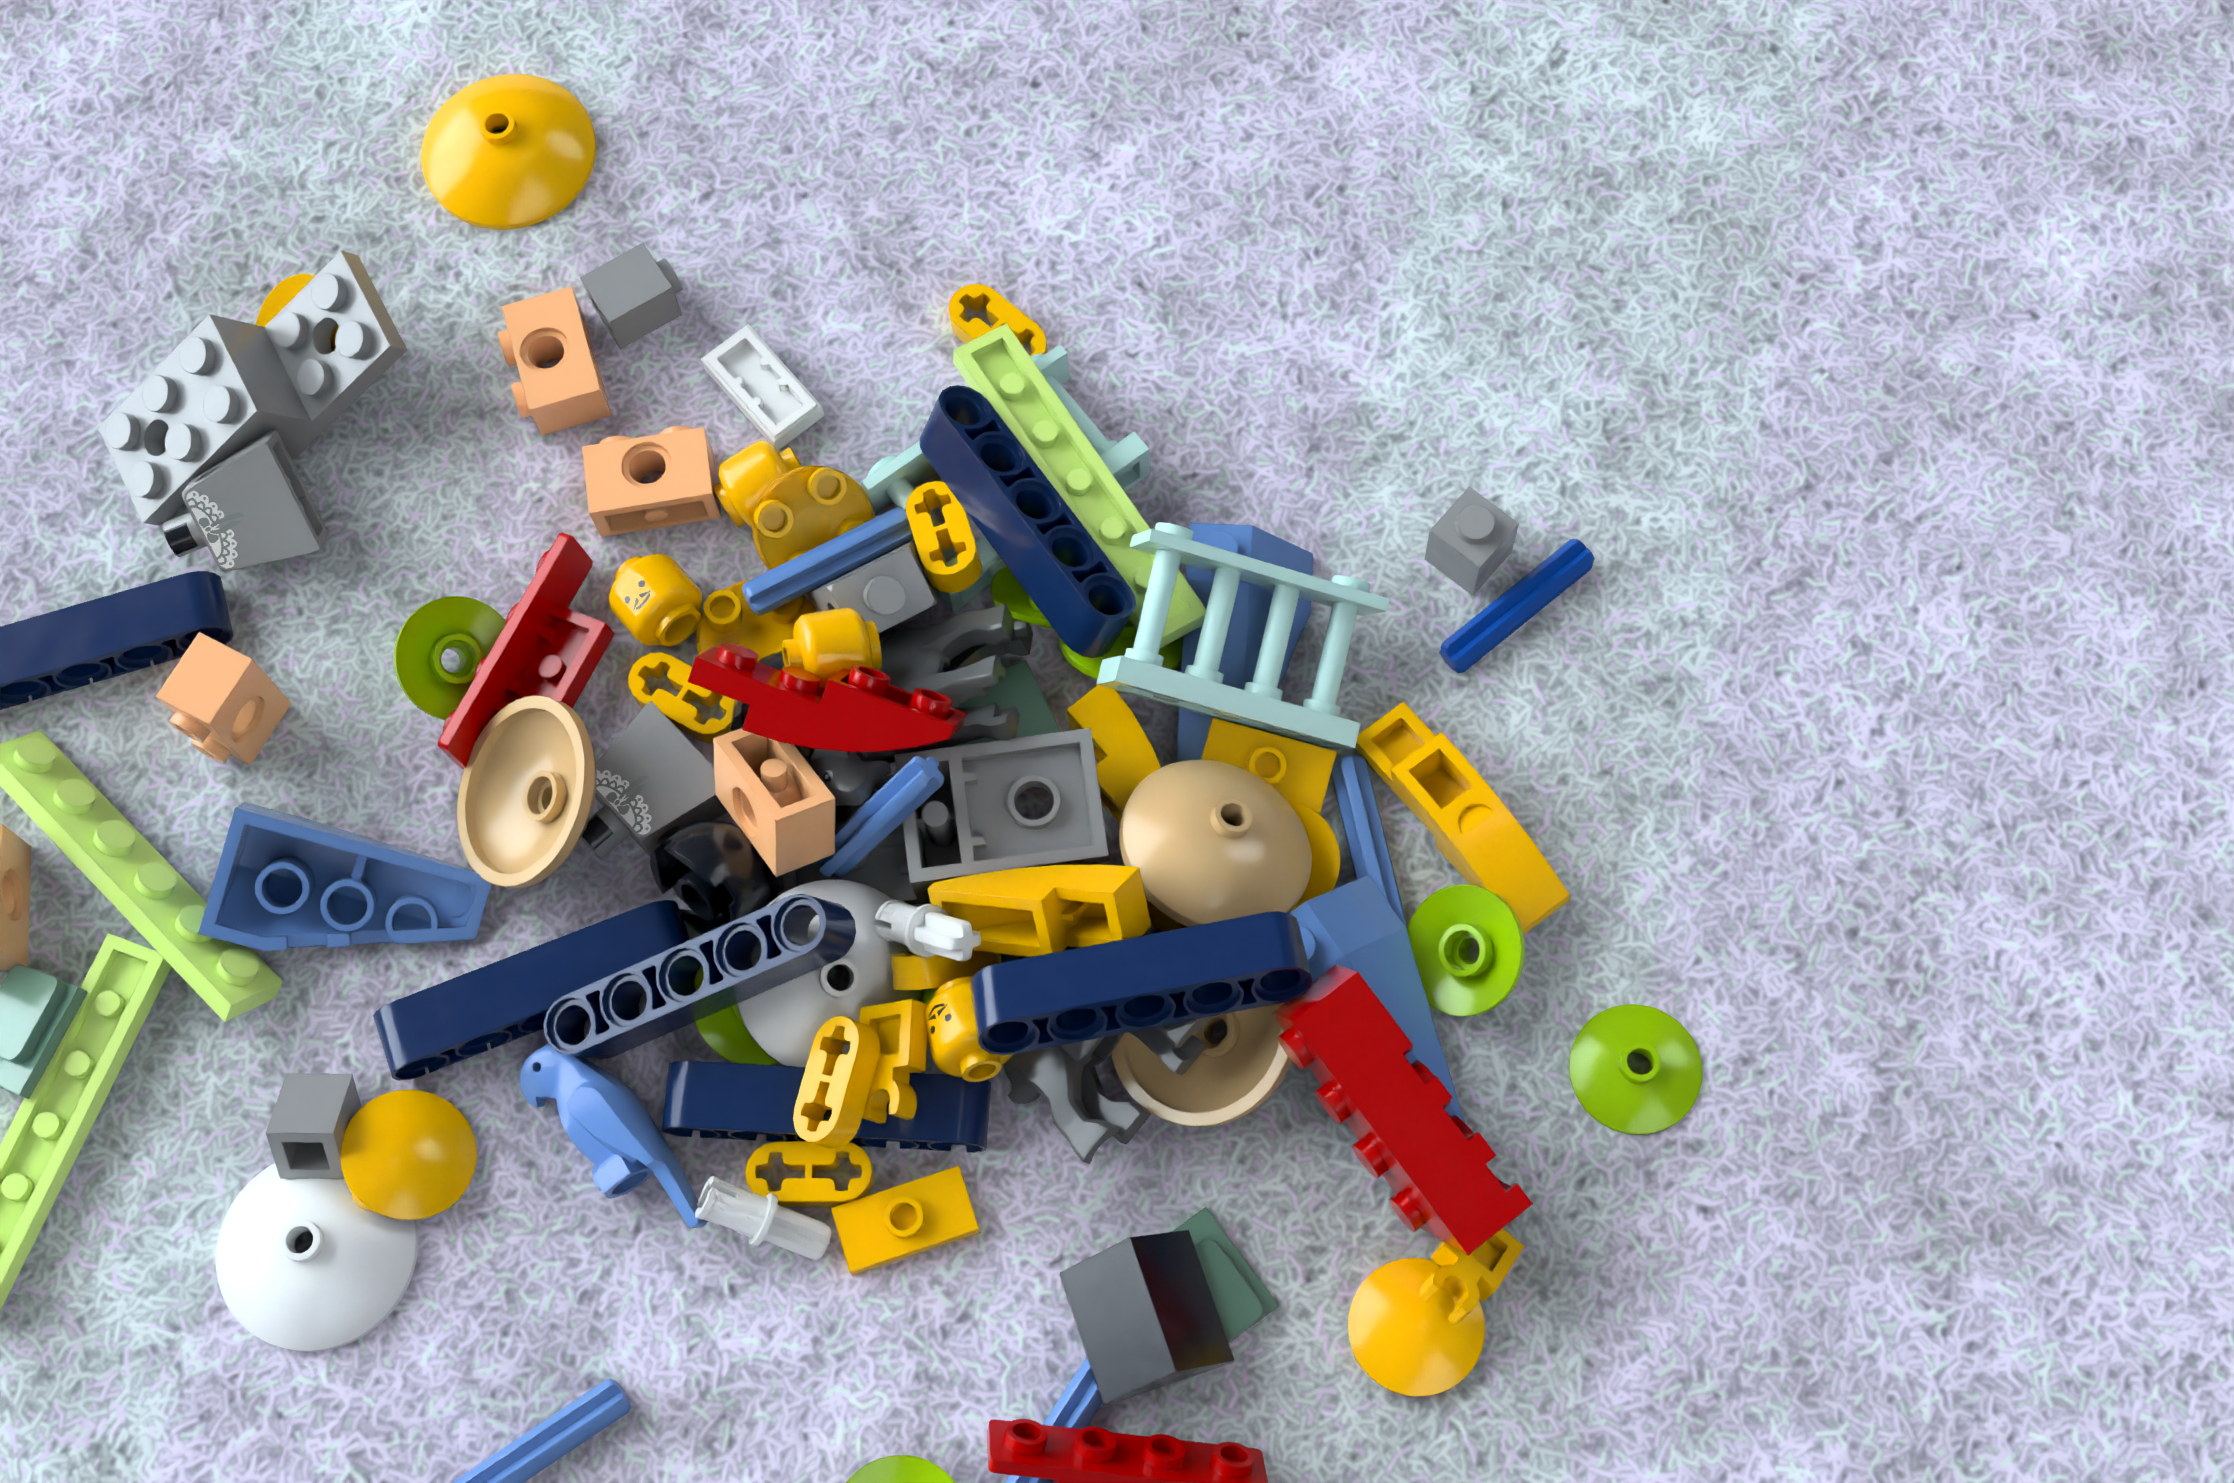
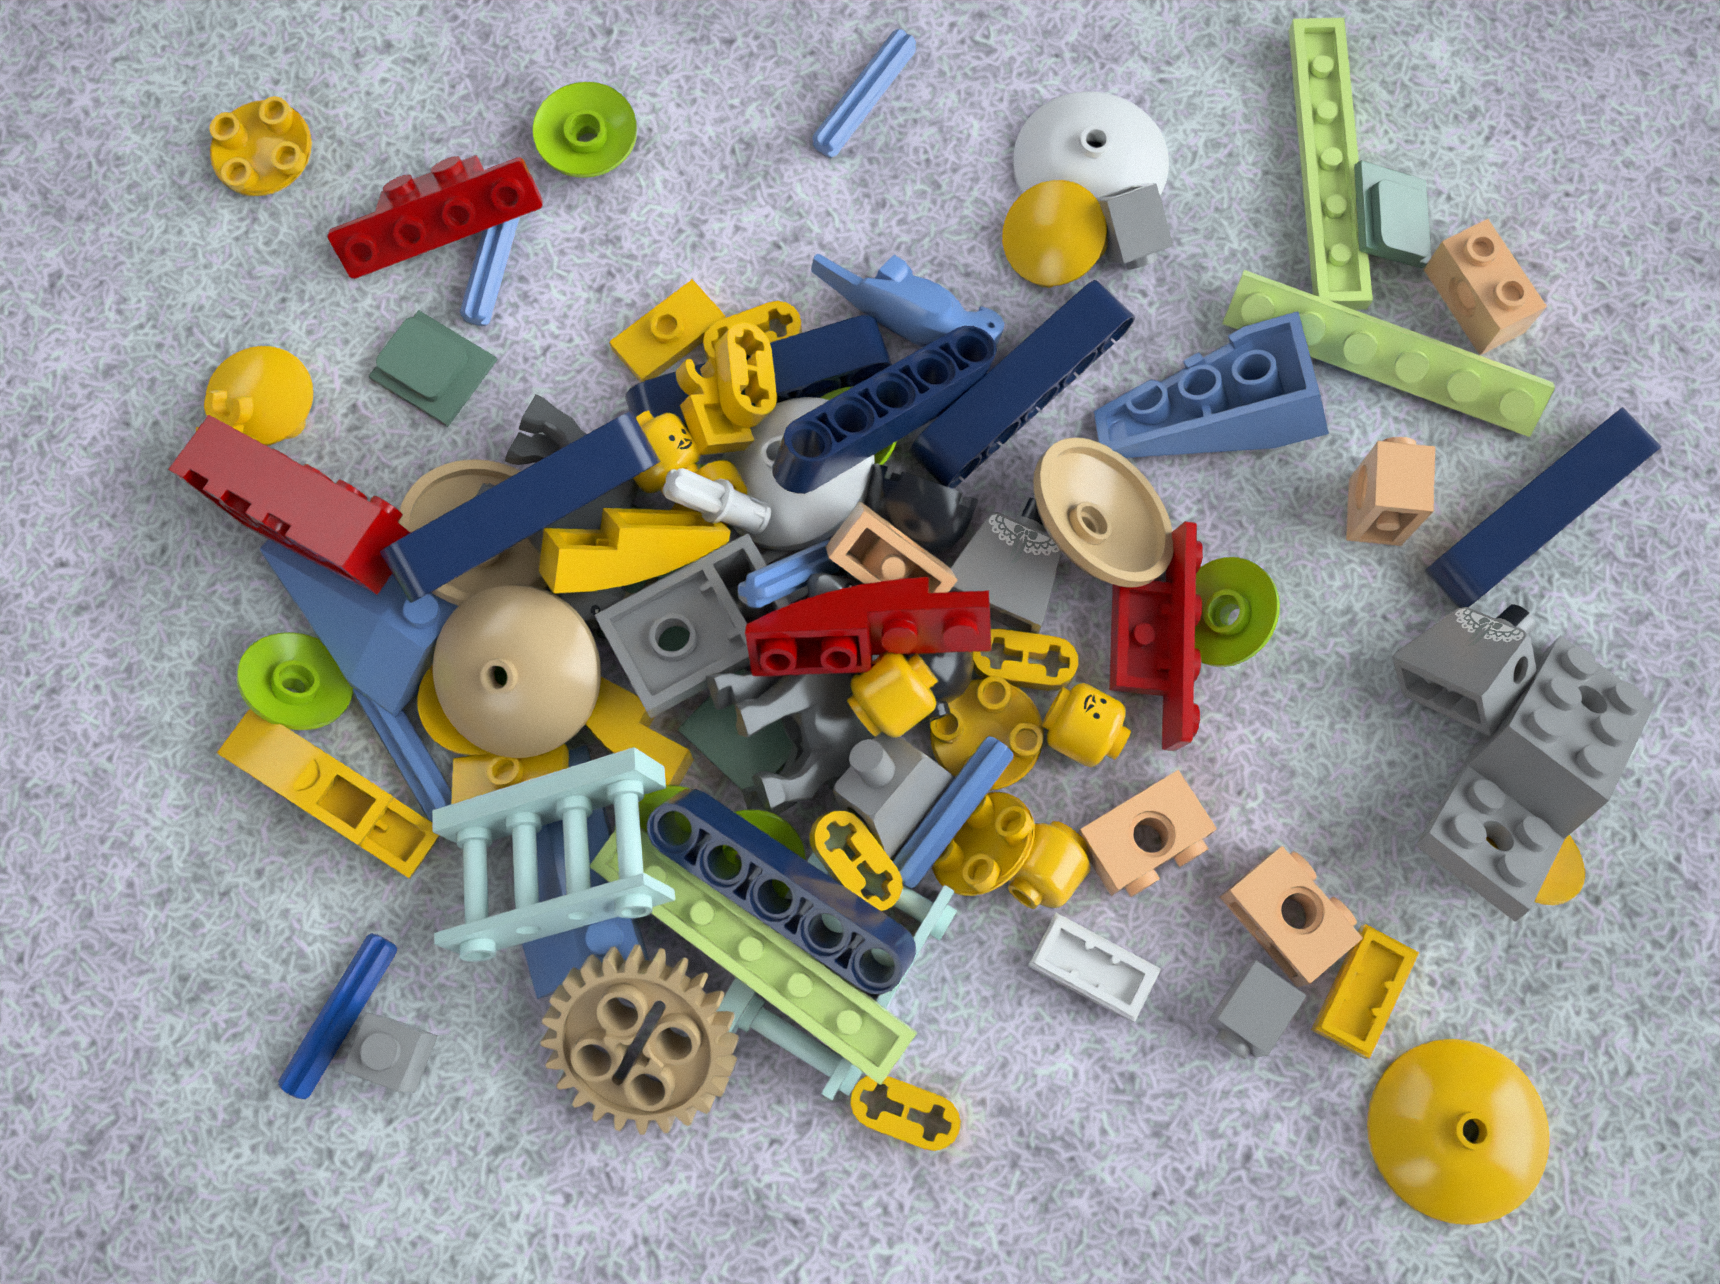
camera: 155 degrees right, 5 degrees up
(531, 269) = (1365, 992): none -> yellow plate
(762, 1219) = (768, 283): white axle -> none
(1145, 1315) = (453, 315): black slope -> none
(1220, 456) = (589, 1013): none -> tan gear
(1615, 1093) = (156, 668): lime dish -> none

